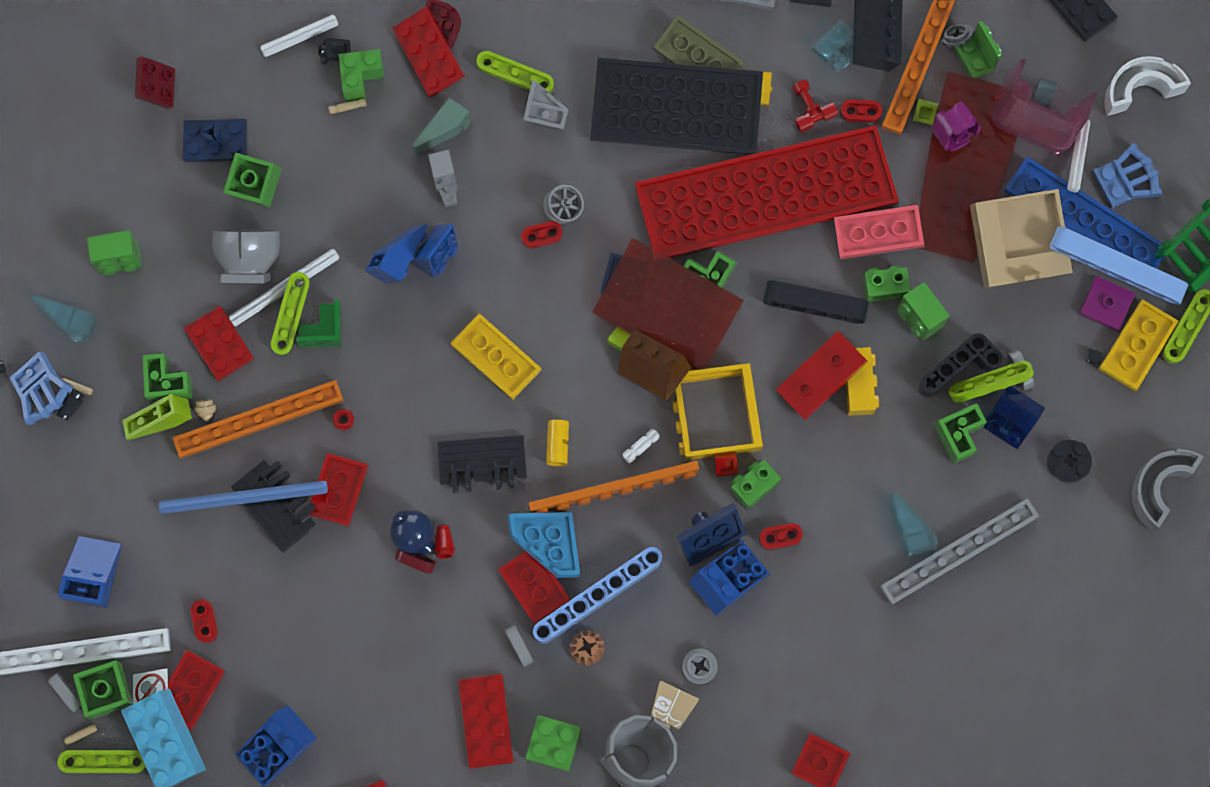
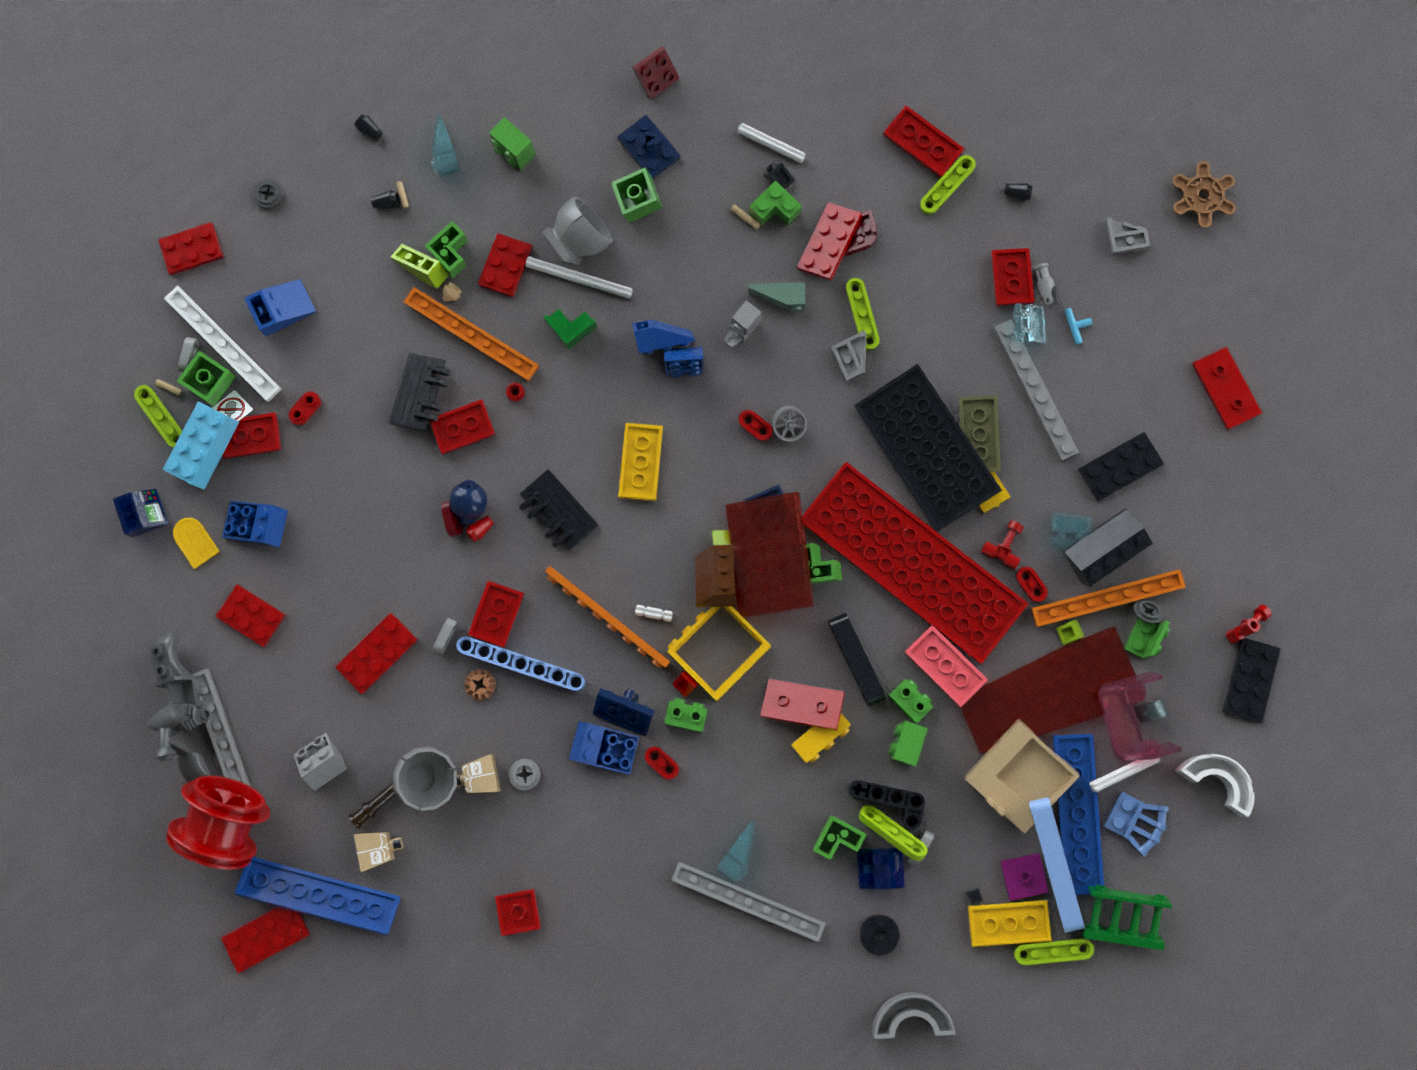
camera: 55 degrees right, 5 degrees up
(30, 379) = (382, 160): medium blue plate -> none
(243, 497) = (402, 362): medium blue axle -> none
(290, 313) = (561, 296): lime plate -> none
(548, 540) = (533, 599): dark azure plate -> none
(553, 743) = (393, 712): bright green brick -> none
(557, 443) = (610, 552): yellow pin -> none
(955, 127) = (1070, 663): magenta brick -> none

